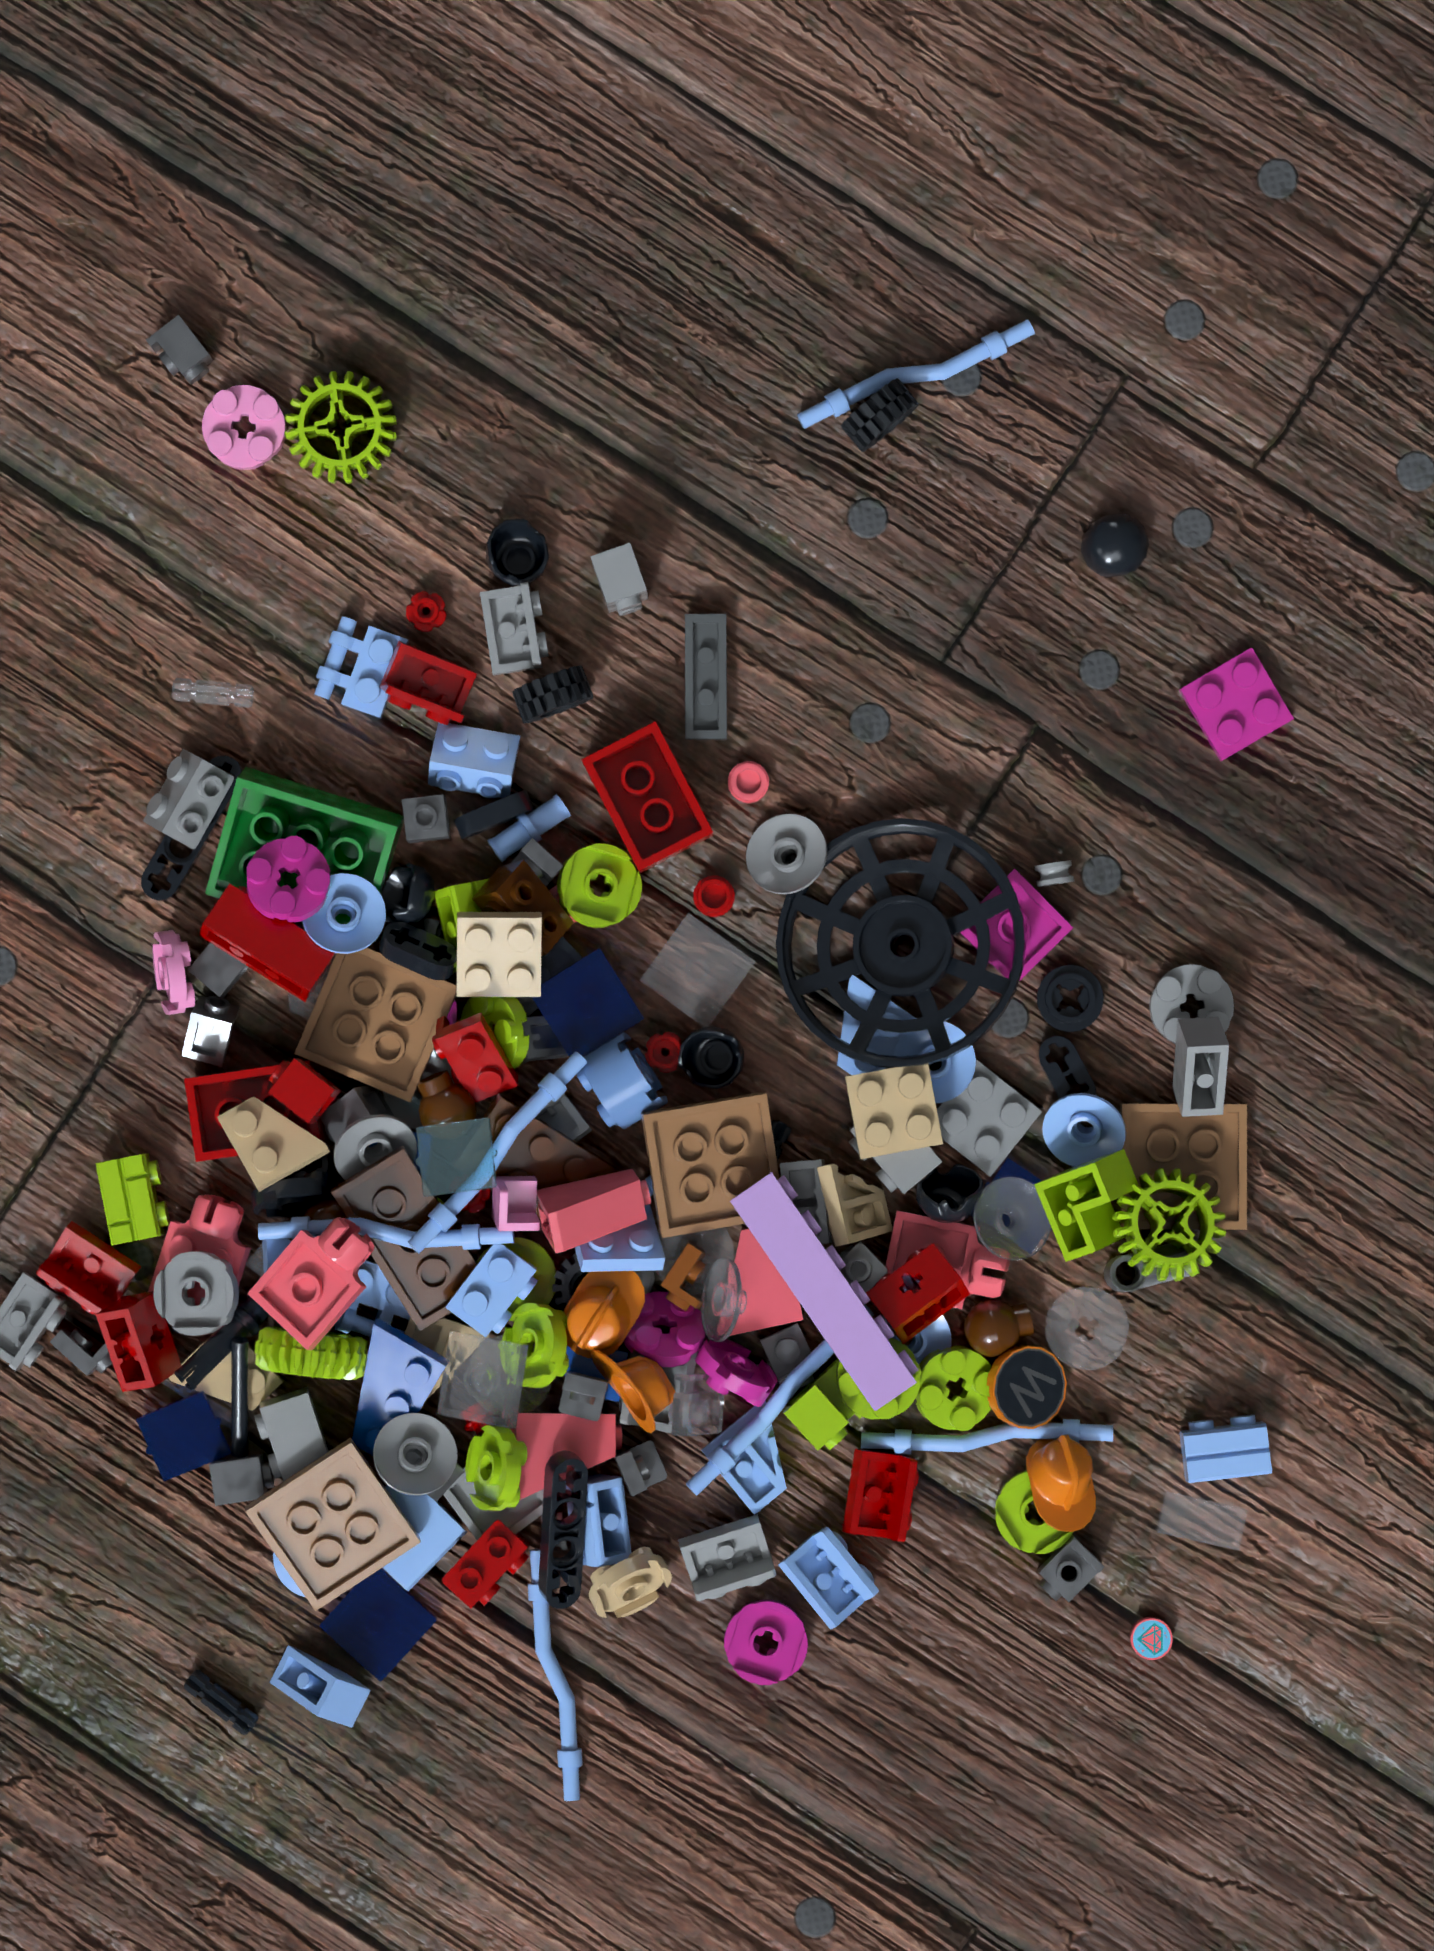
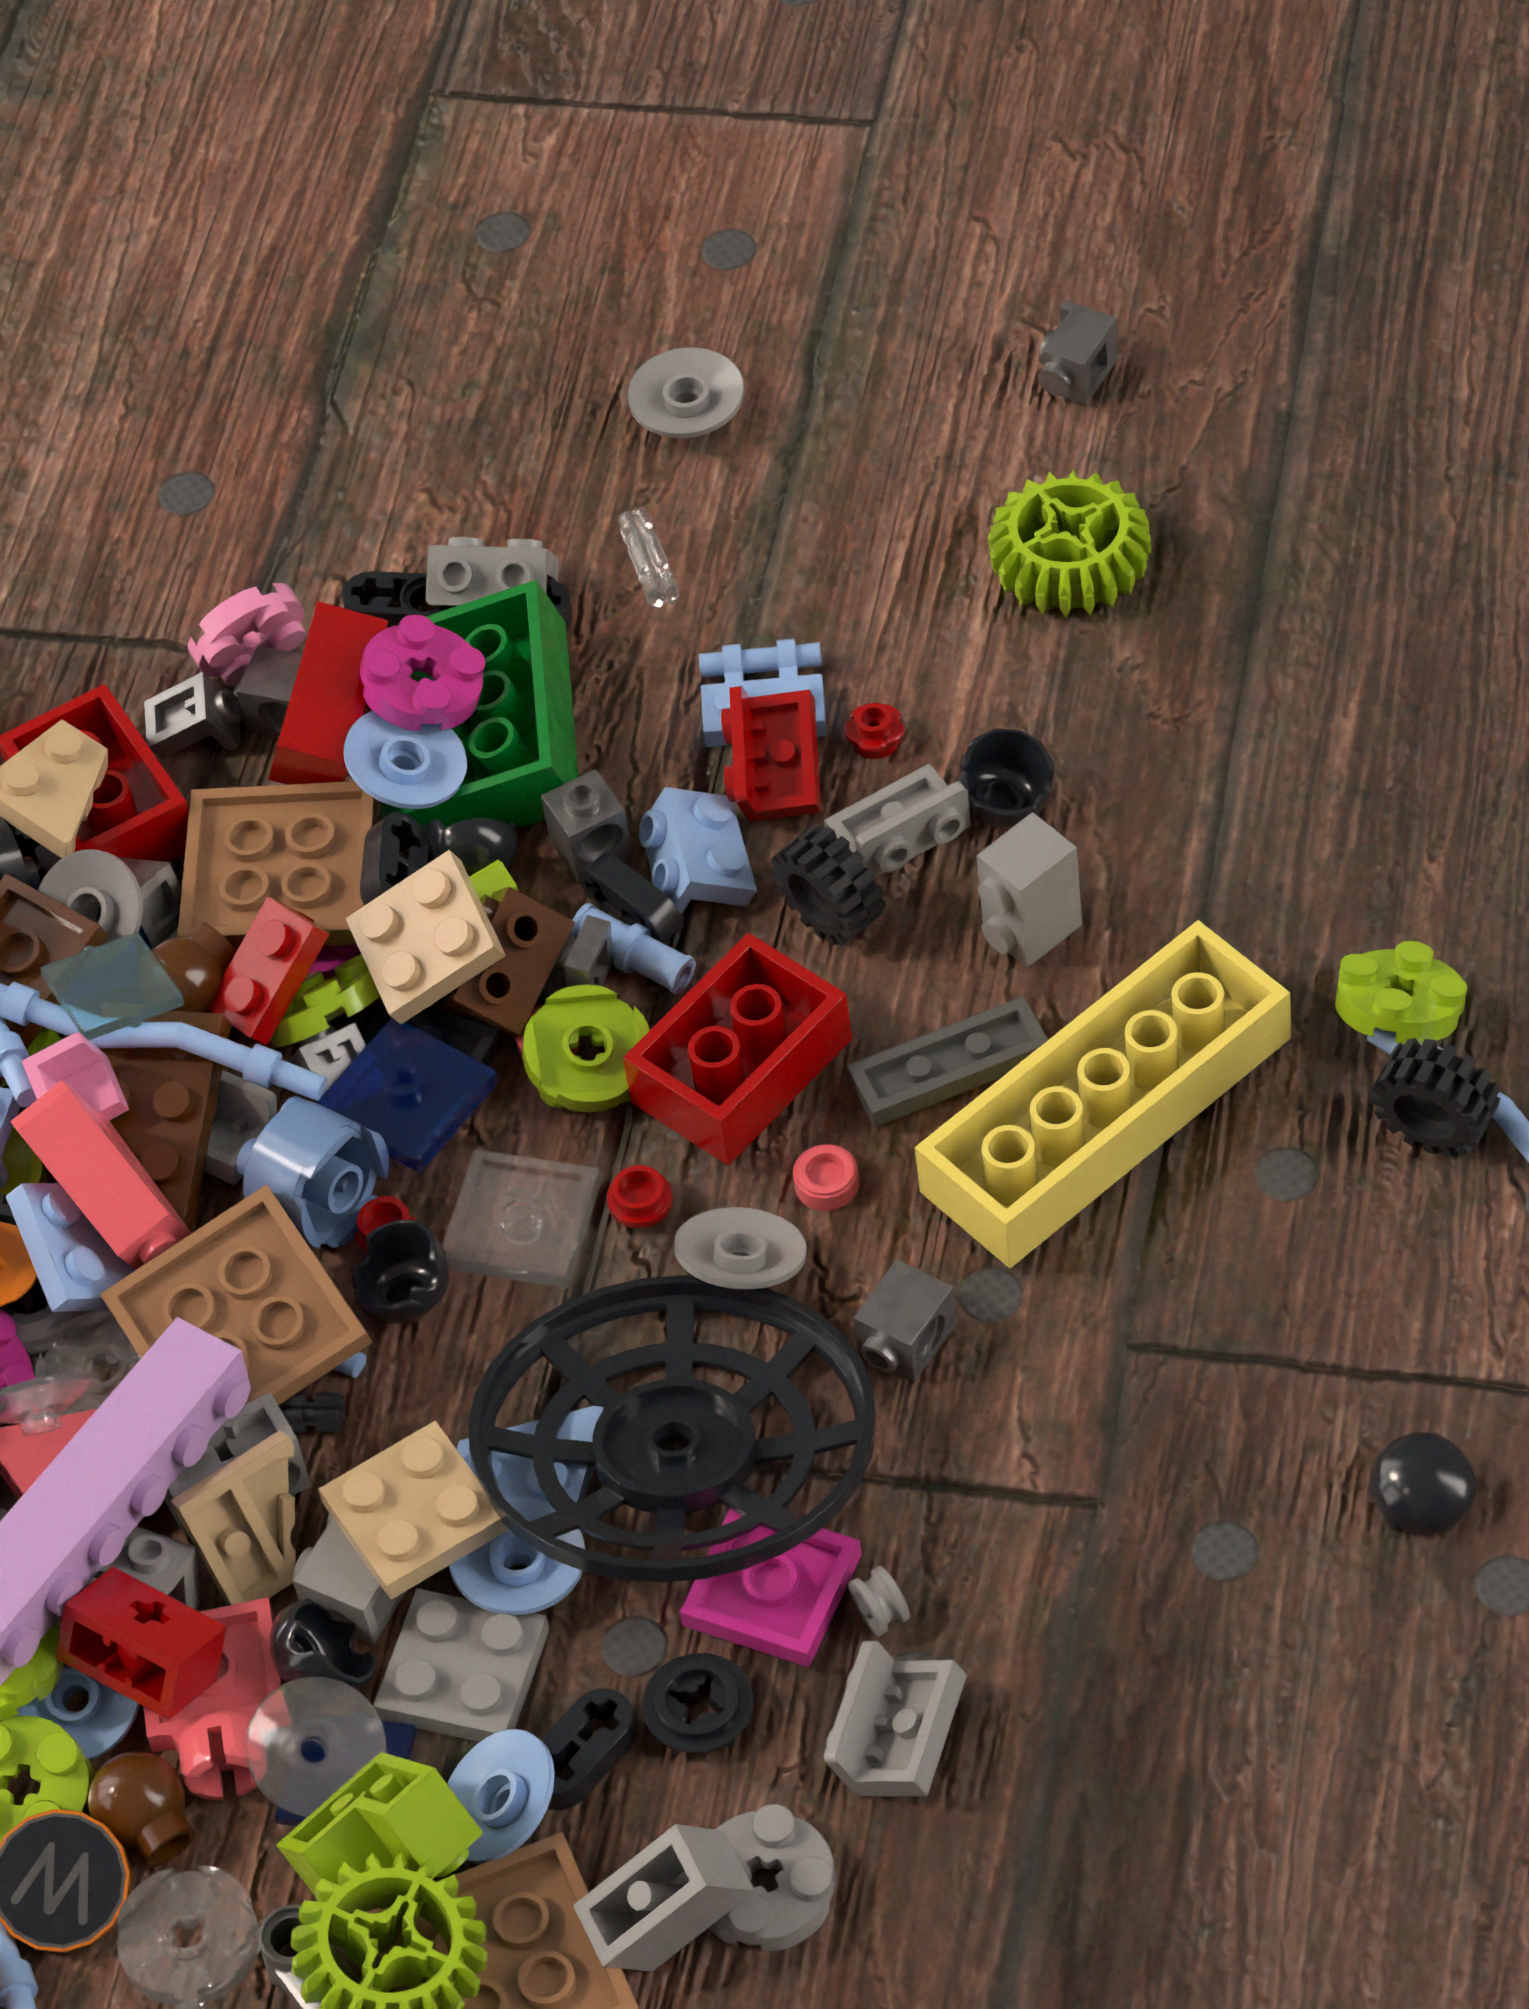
camera: 75 degrees right, 35 degrees down
(70, 601) = (685, 392): none -> light grey dish
(224, 441) = (1010, 432): bright pink plate -> none
(302, 1089) = (131, 777): red brick -> none
(685, 1270) = (56, 1345): dark orange bracket -> none
(775, 377) = (1400, 993): none -> lime plate
(782, 598) = (1103, 1093): none -> light yellow brick
(879, 782) = (905, 1321): none -> flat silver brick
(1136, 897) = (893, 1723): none -> light grey bracket
(1236, 704) = (1268, 1748): dark pink plate -> none

